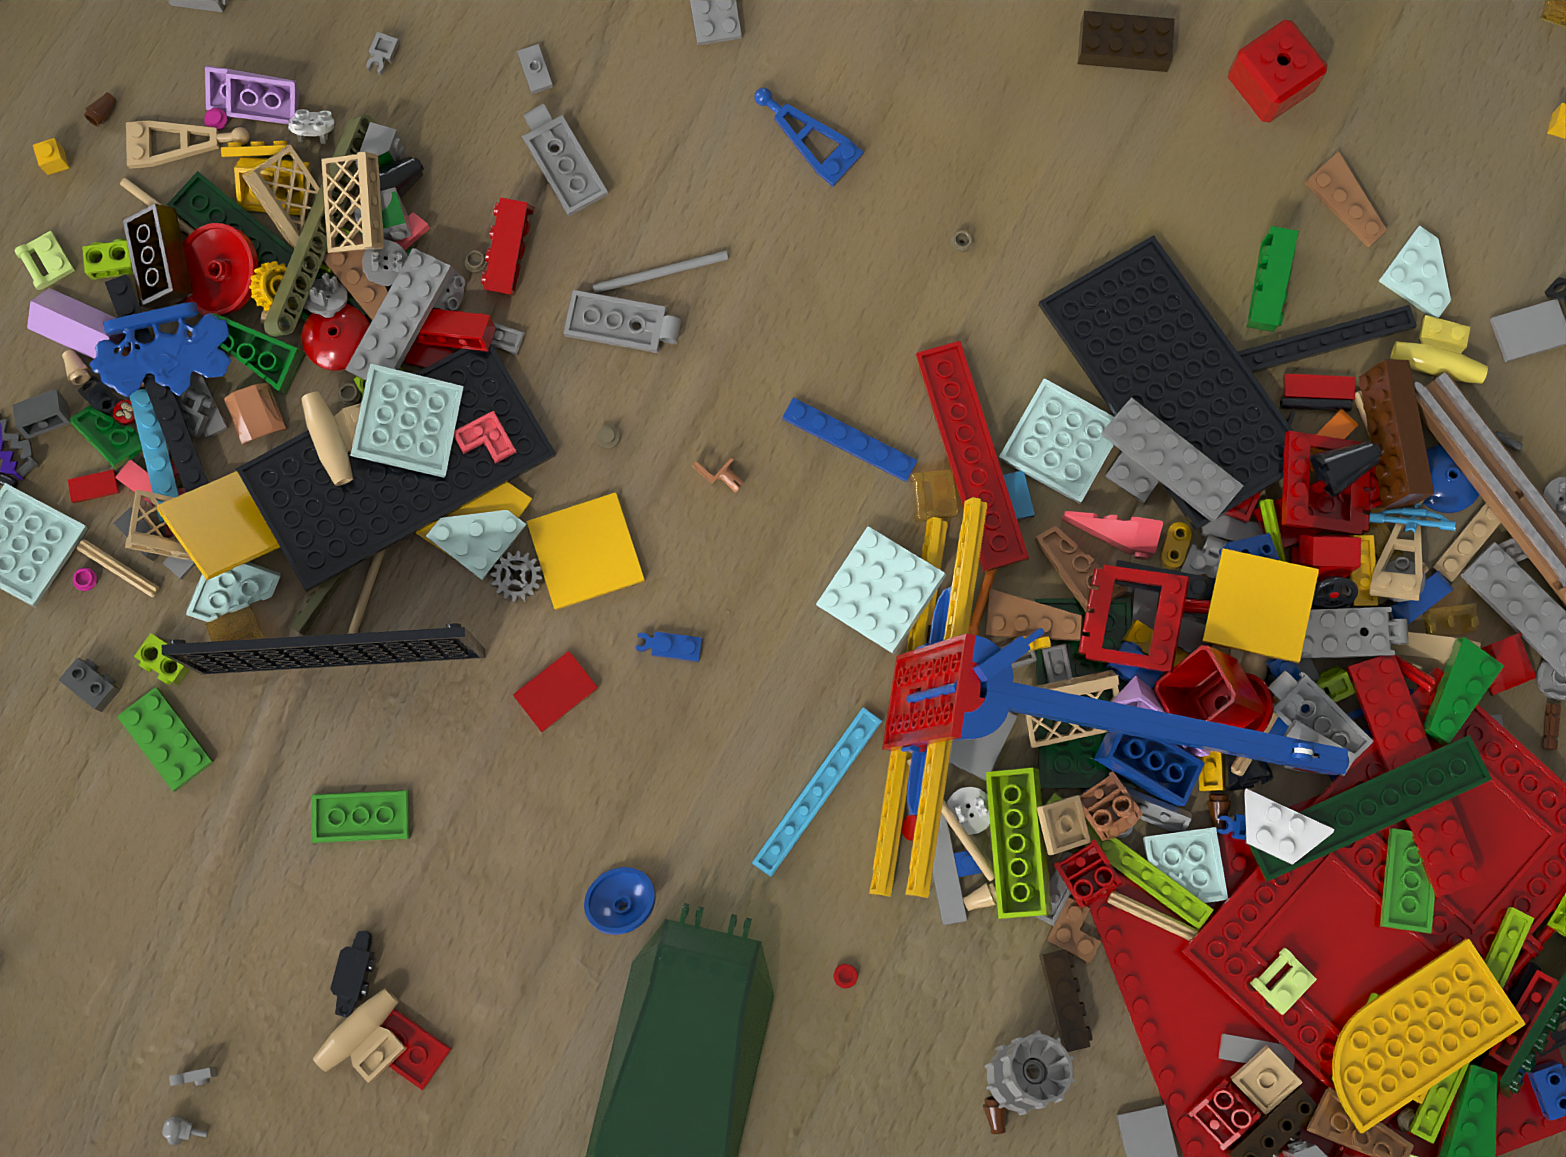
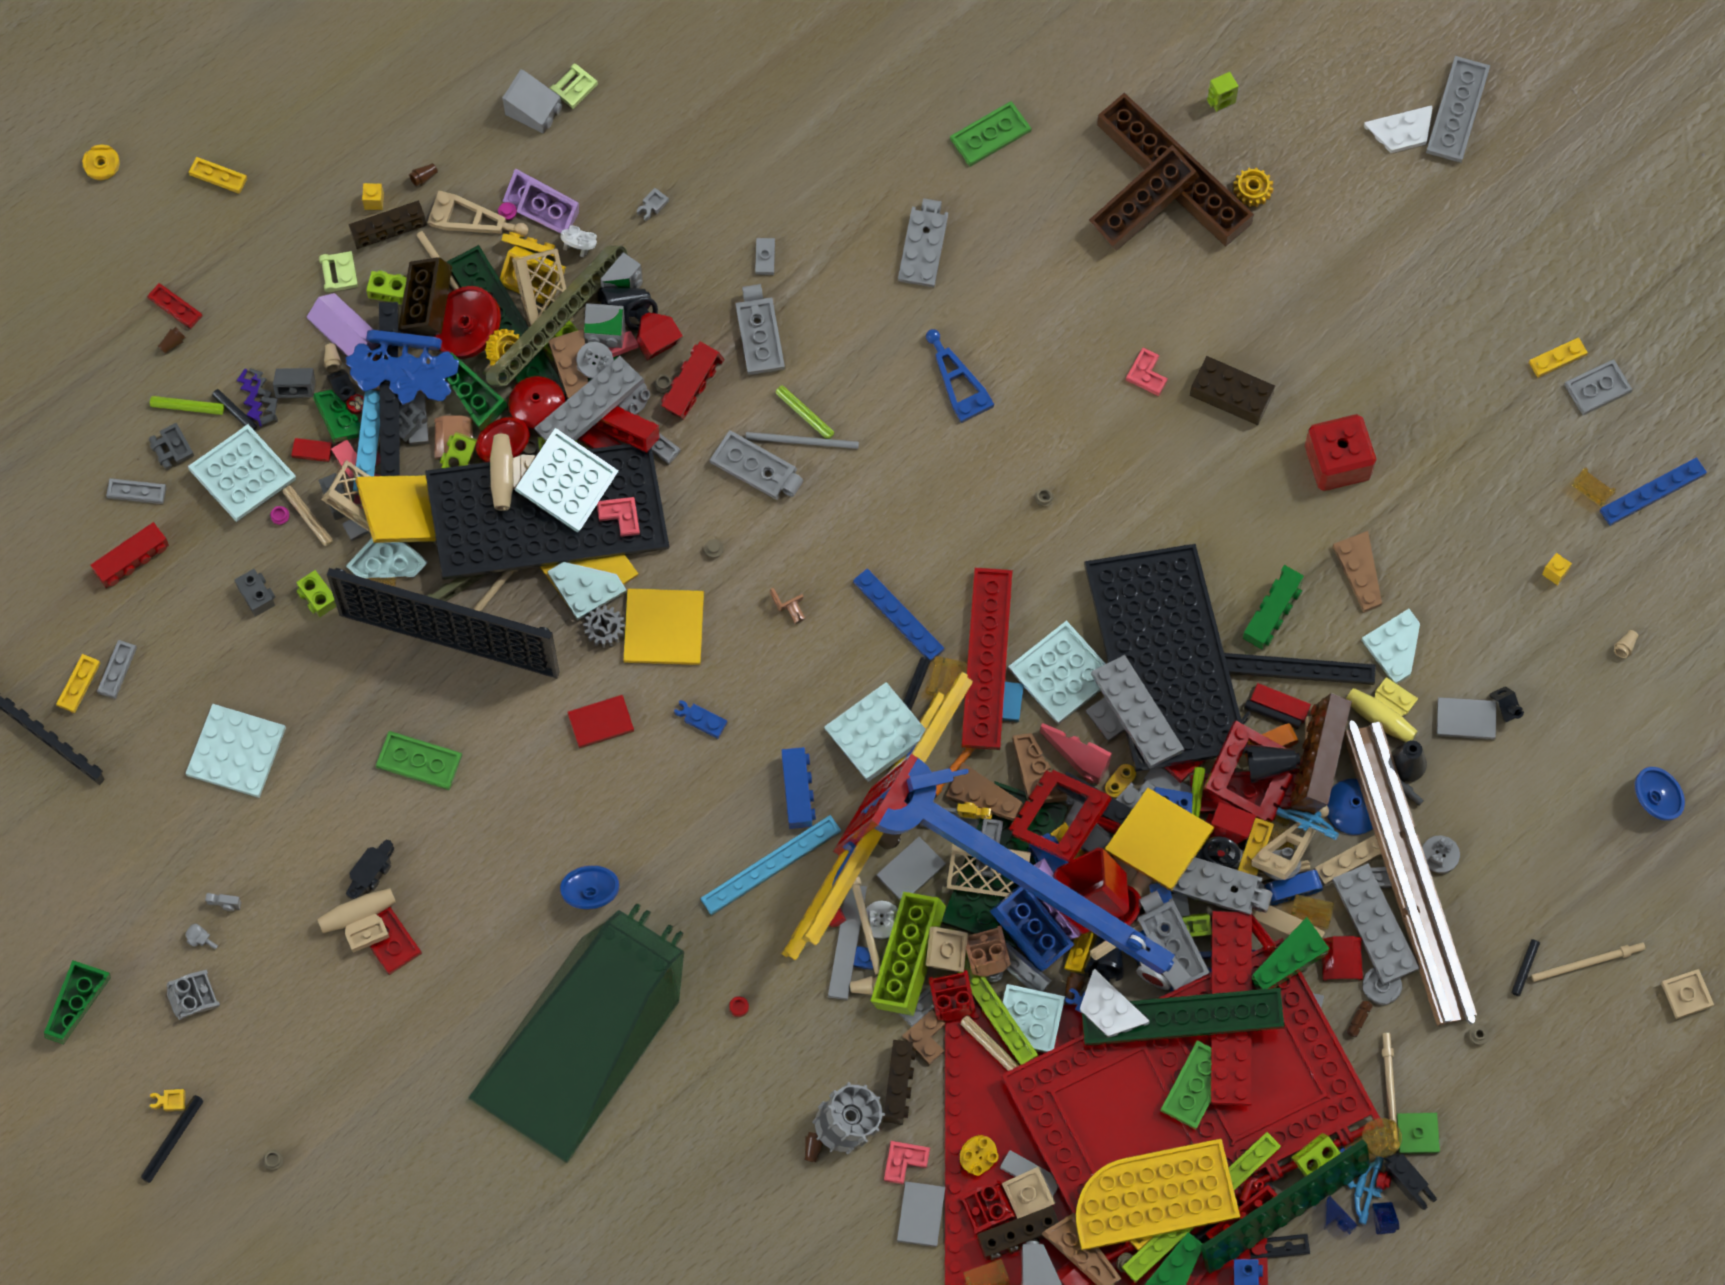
camera: 20 degrees right, 10 degrees down
(80, 184) = (387, 224): none -> dark brown brick
(139, 884) = (235, 750): none -> light aqua plate
(165, 739) = (295, 652): bright green plate -> none
(274, 431) = (453, 452): none -> lime brick
(312, 379) = (513, 427): none -> red dish
(326, 297) = (540, 369): light grey plate -> none
(370, 197) = (599, 309): tan fence -> none
(442, 203) = (655, 330): none -> red piece
(651, 238) = (805, 412): none -> lime axle
(814, 691) = (797, 788): none -> blue brick
(900, 513) = (916, 682): none -> black axle
(1017, 59) = (1142, 374): none -> coral tile
(1098, 1088) = (902, 1155): none -> coral tile
(1191, 1055) = (985, 1149): none -> yellow plate
(1289, 986) = (1071, 1129): yellowish green plate -> none
(1492, 401) = (1410, 761): none -> black cone
(1516, 979) = (1250, 1188): none -> red arm

